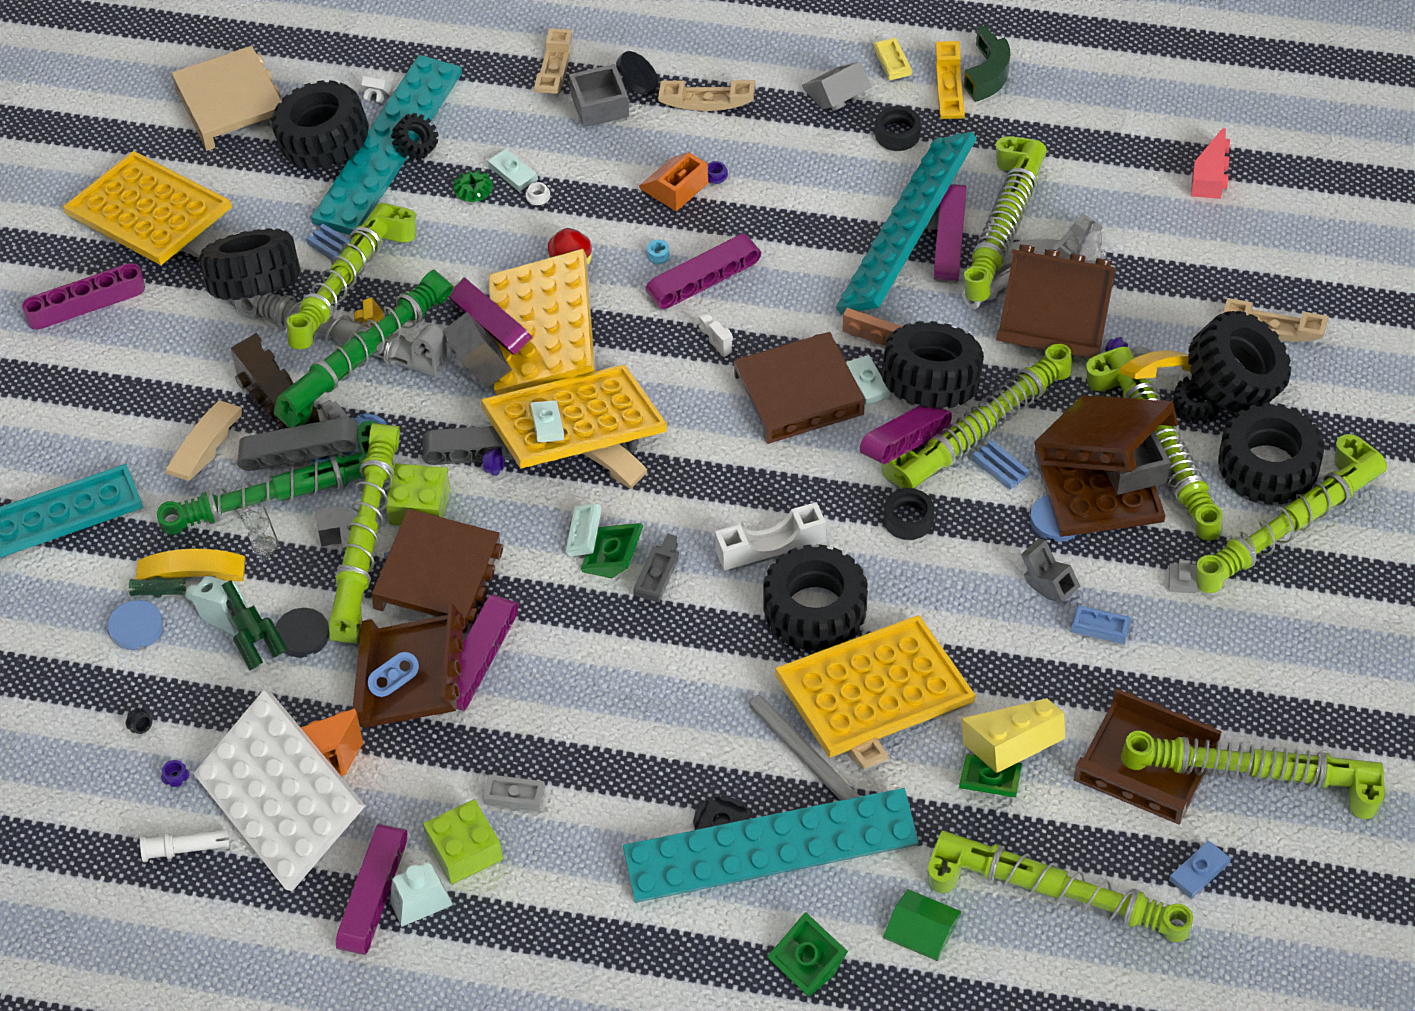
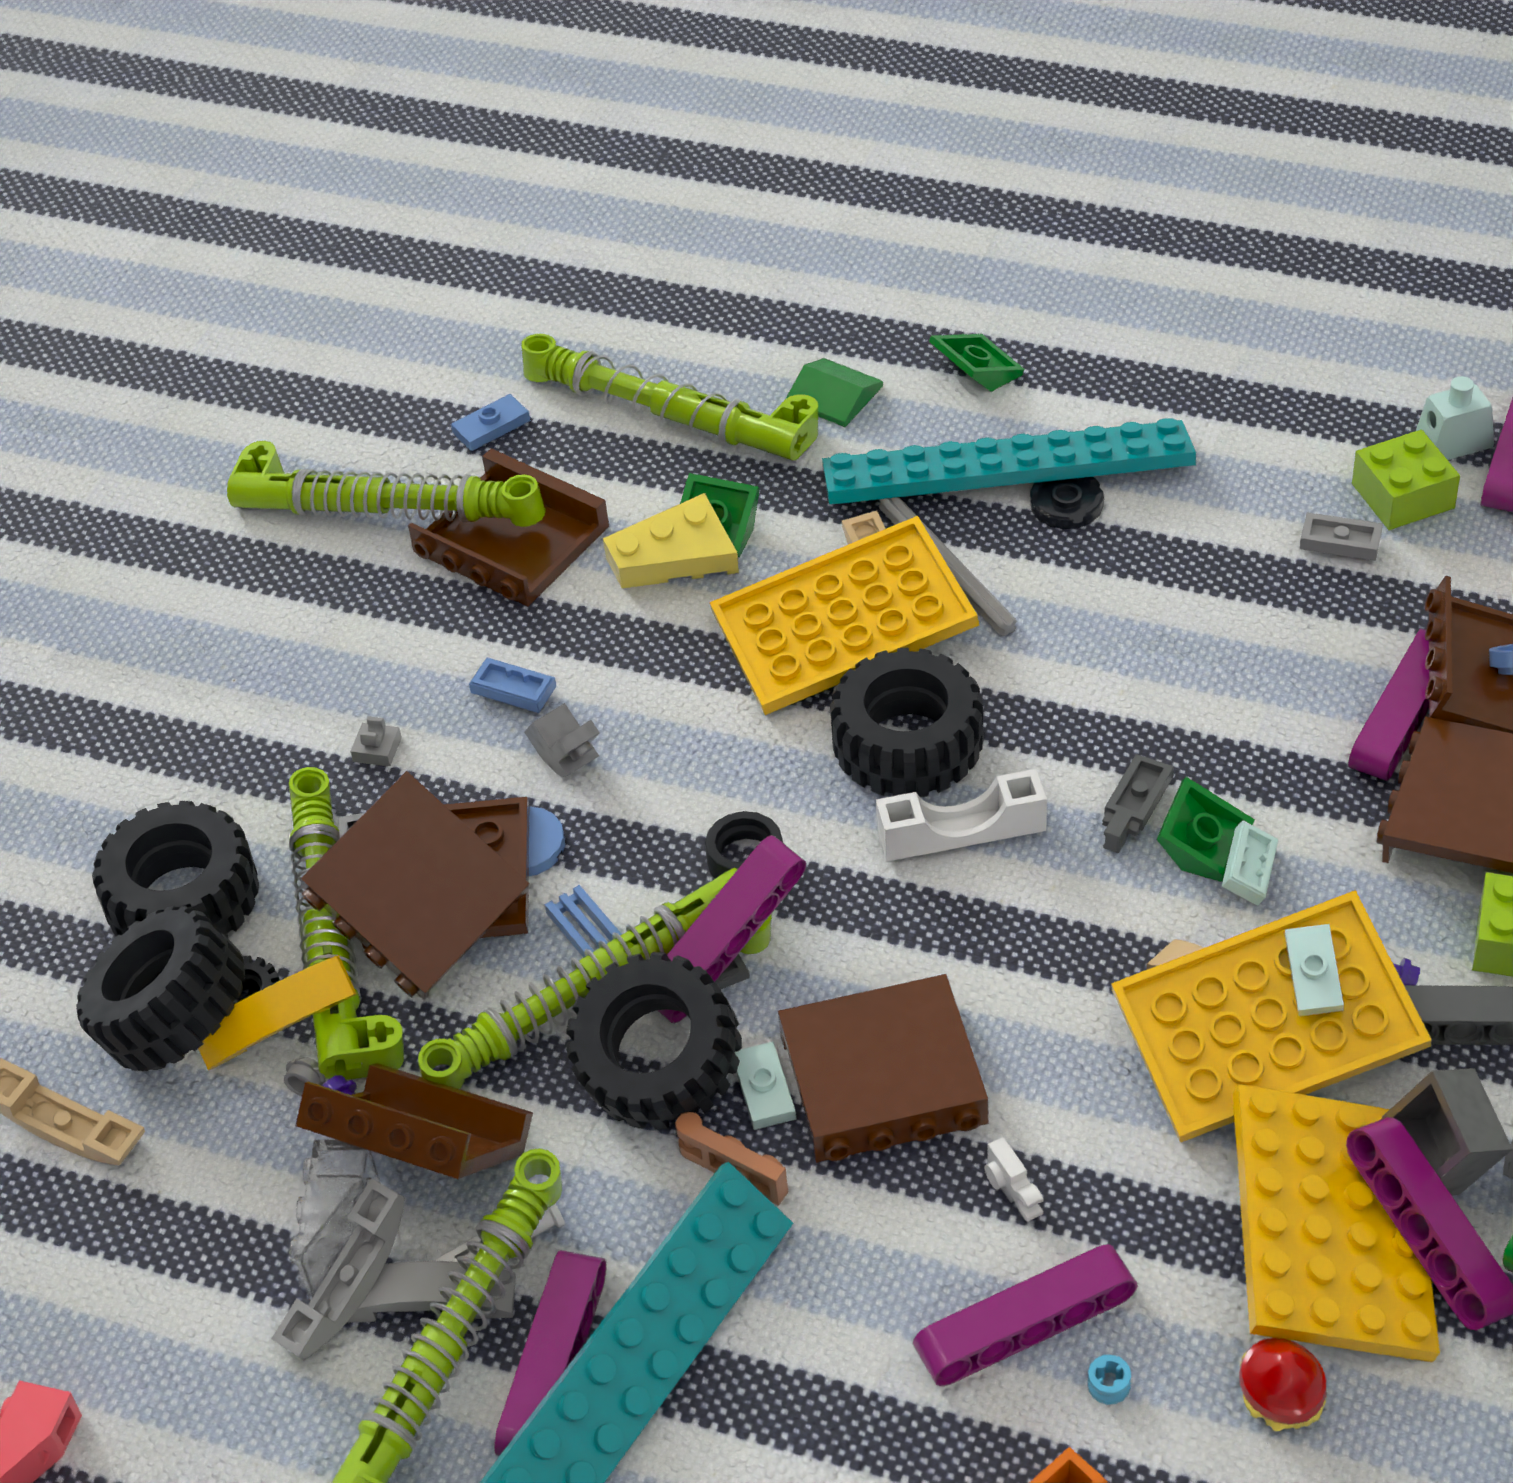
camera: 170 degrees left, 5 degrees down
(1358, 466) = (285, 748): lime piece -> none

